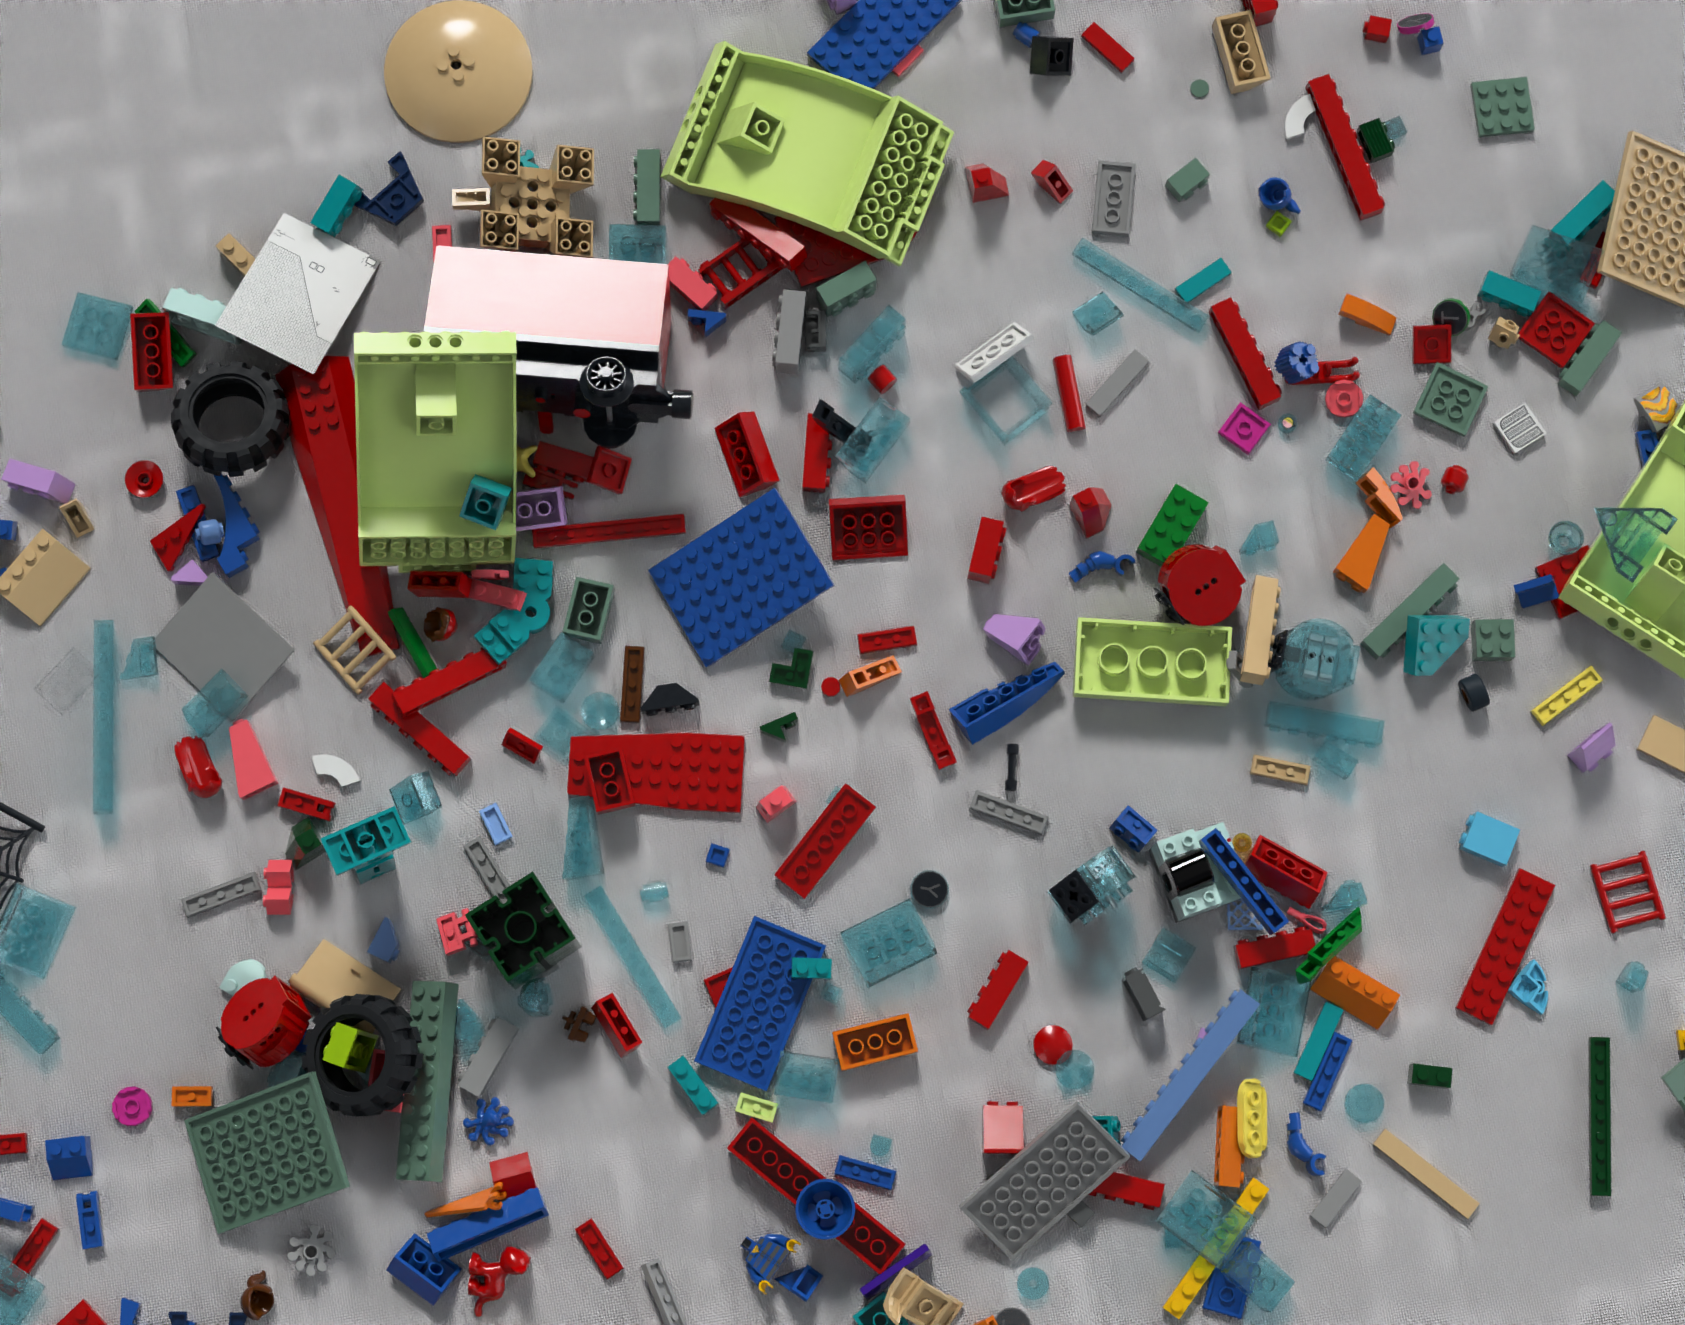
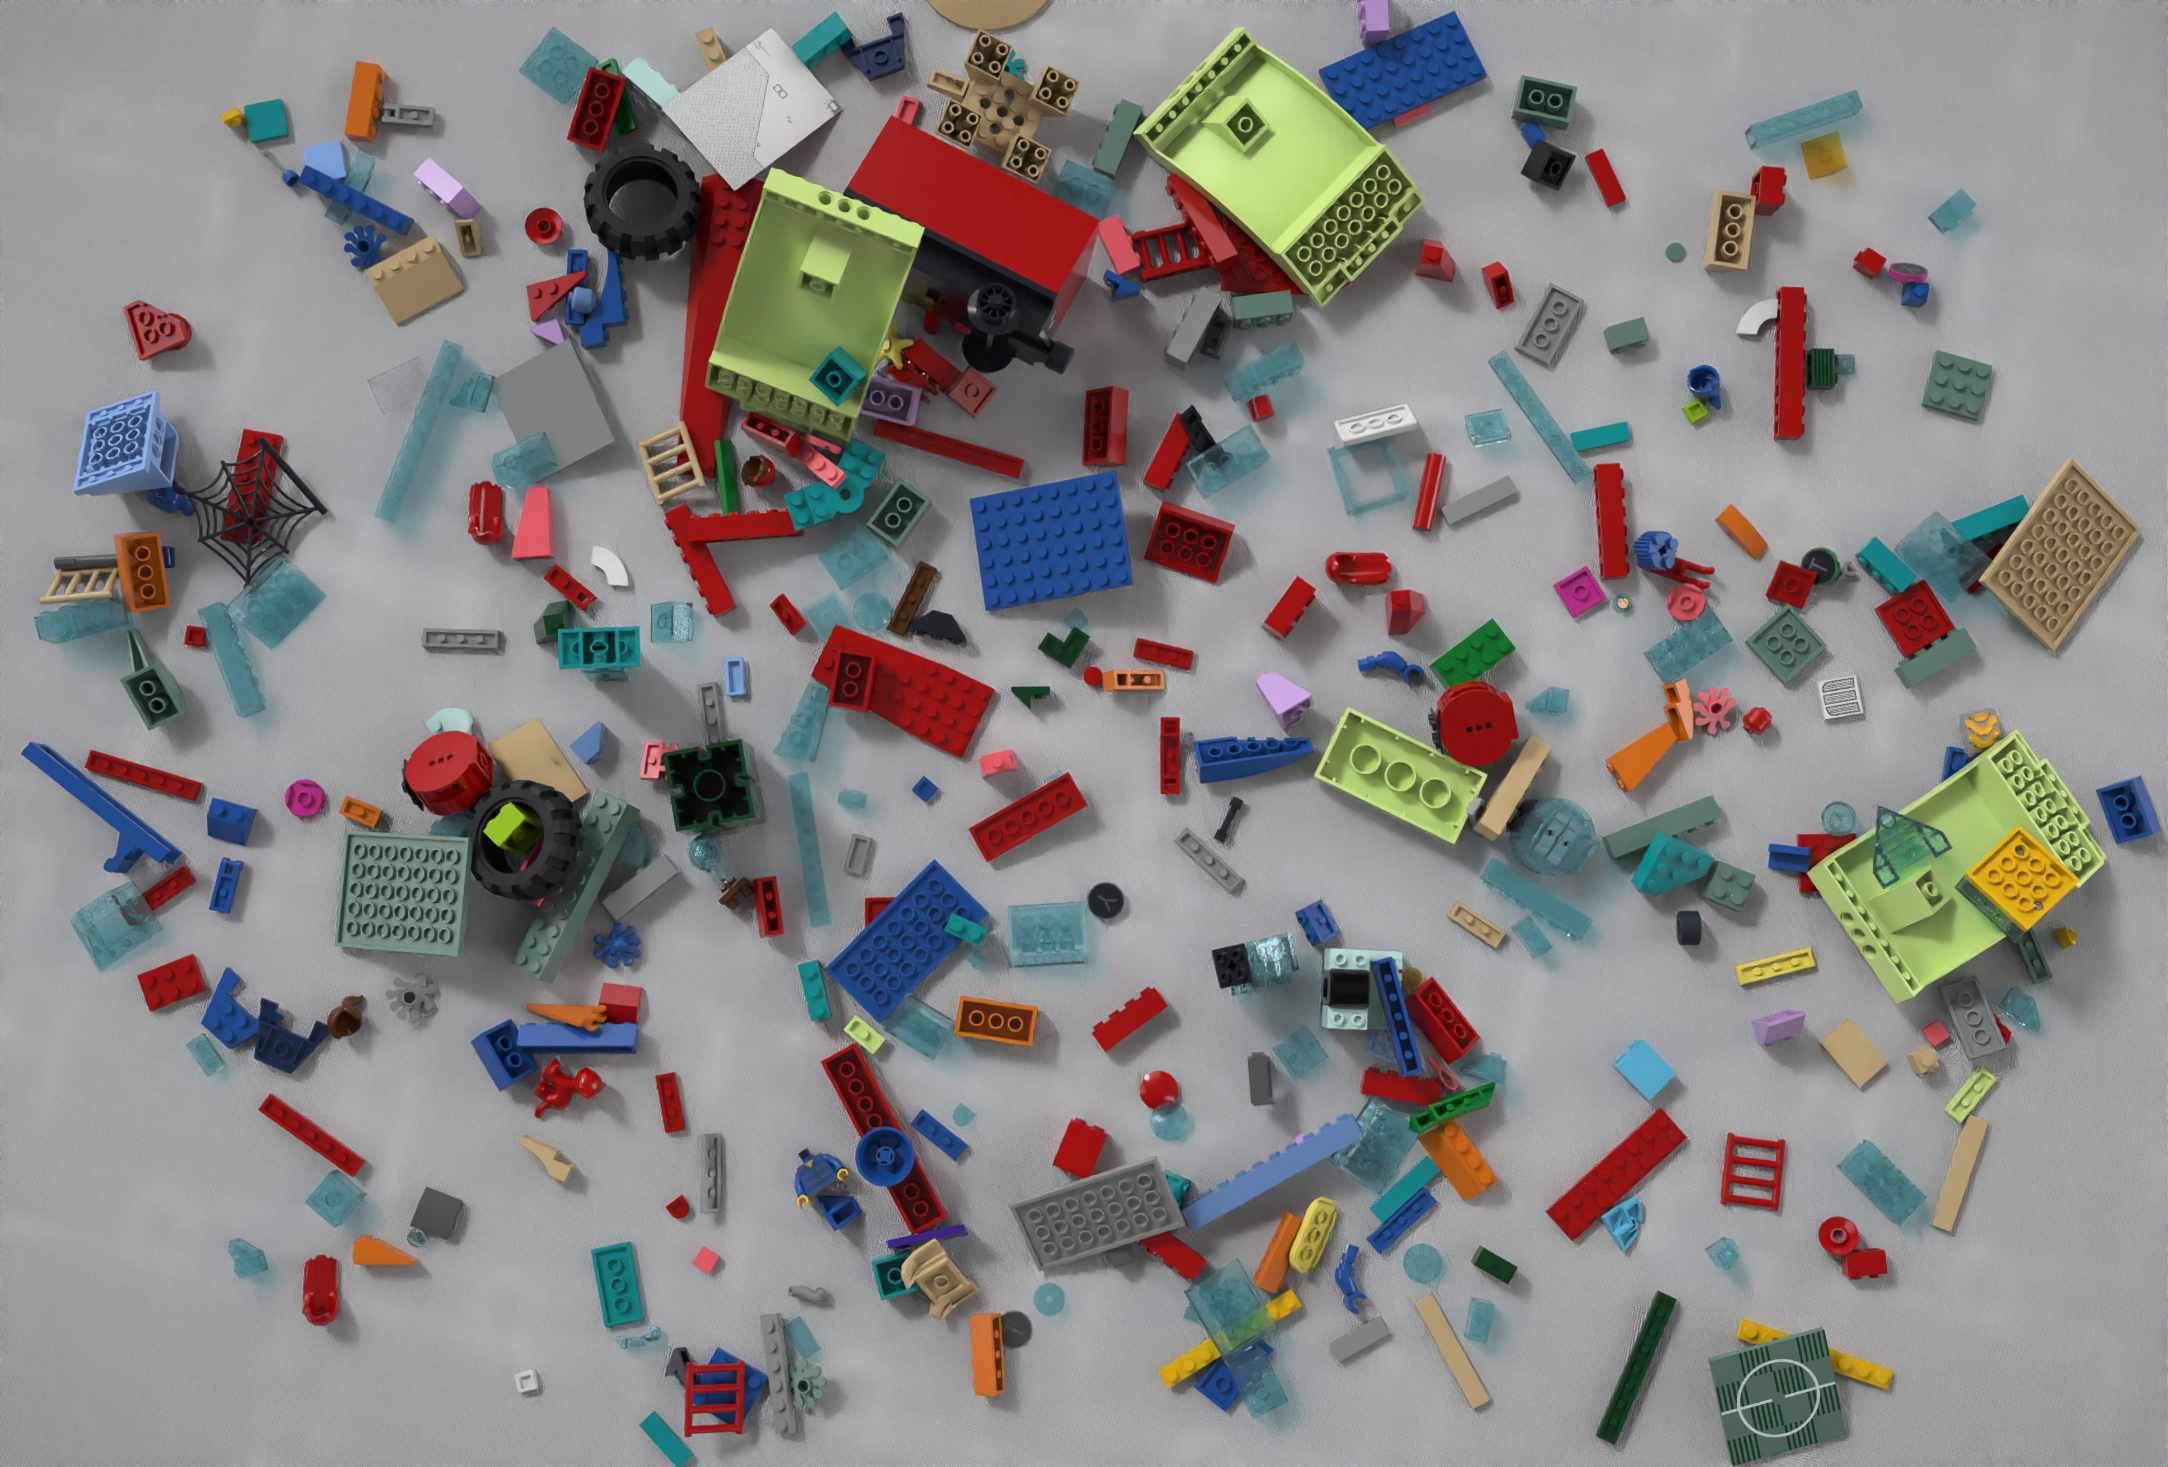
camera: 25 degrees right, 5 degrees up
(279, 892) = (511, 662): coral brick -> none
(1438, 1133) = (1479, 1320): none -> clear light blue brick
(1504, 333) = (1864, 601): tan brick -> none

